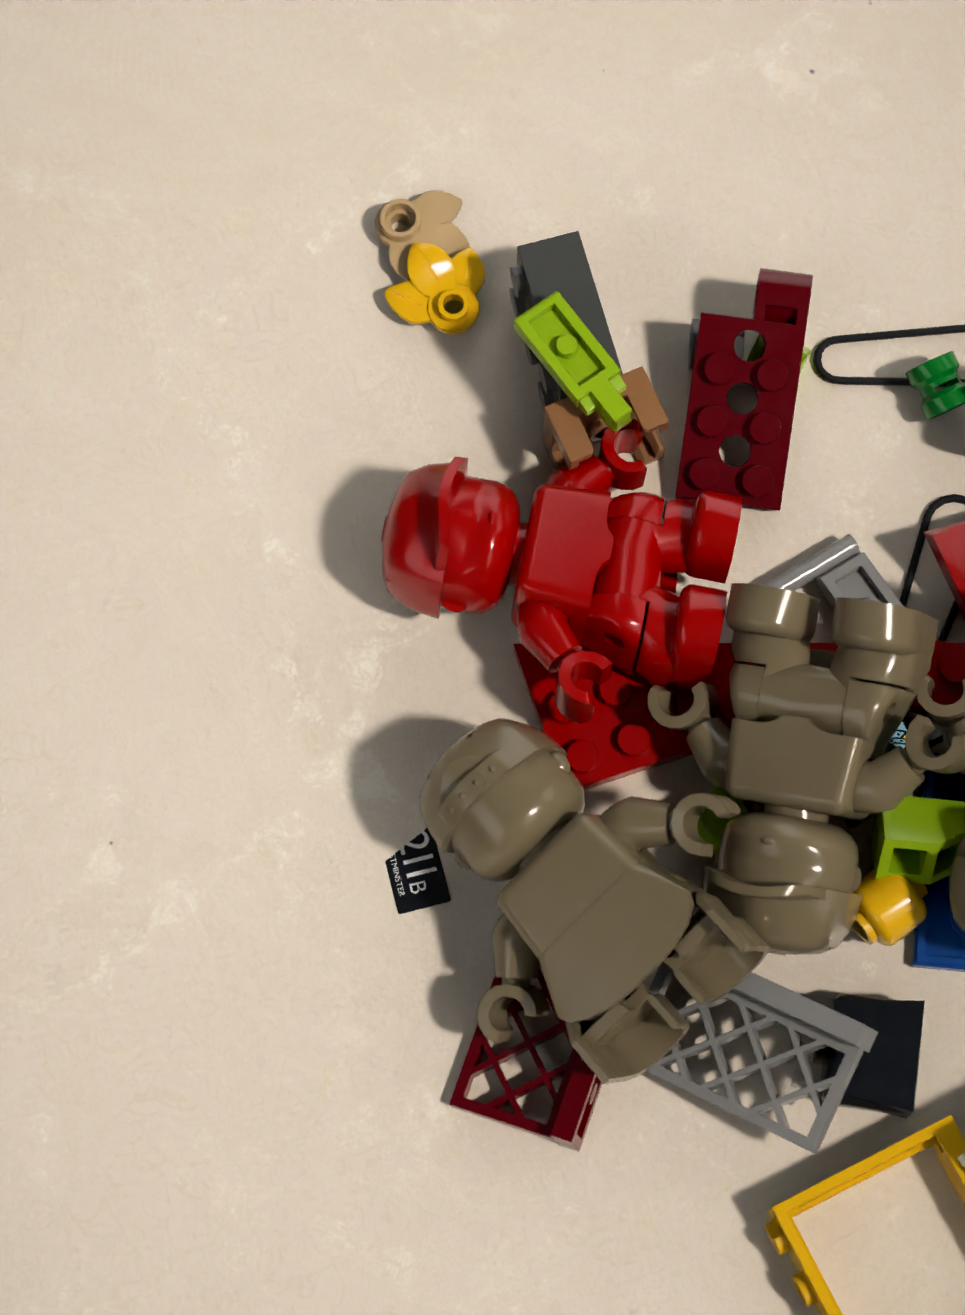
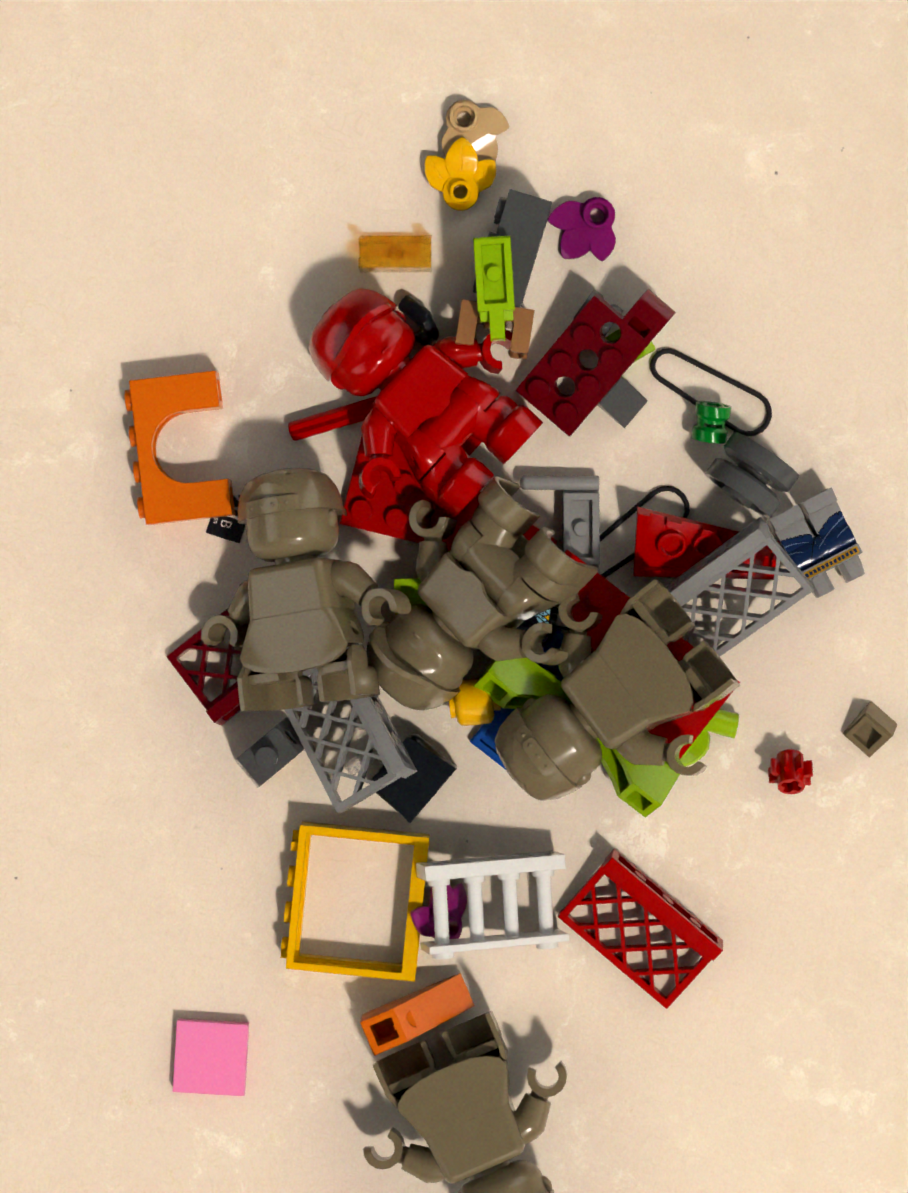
camera: 30 degrees right, 15 degrees up
(321, 894) = (153, 406): none -> orange arch
(422, 427) = (395, 254): none -> clear yellow hinge
(470, 670) = (330, 419): none -> red axle
(507, 475) = (423, 318): none -> black arm
(630, 268) = (581, 232): none -> magenta plate
(669, 1144) = (270, 753): none -> dark grey torso
(816, 432) = (622, 402): none -> dark grey slope

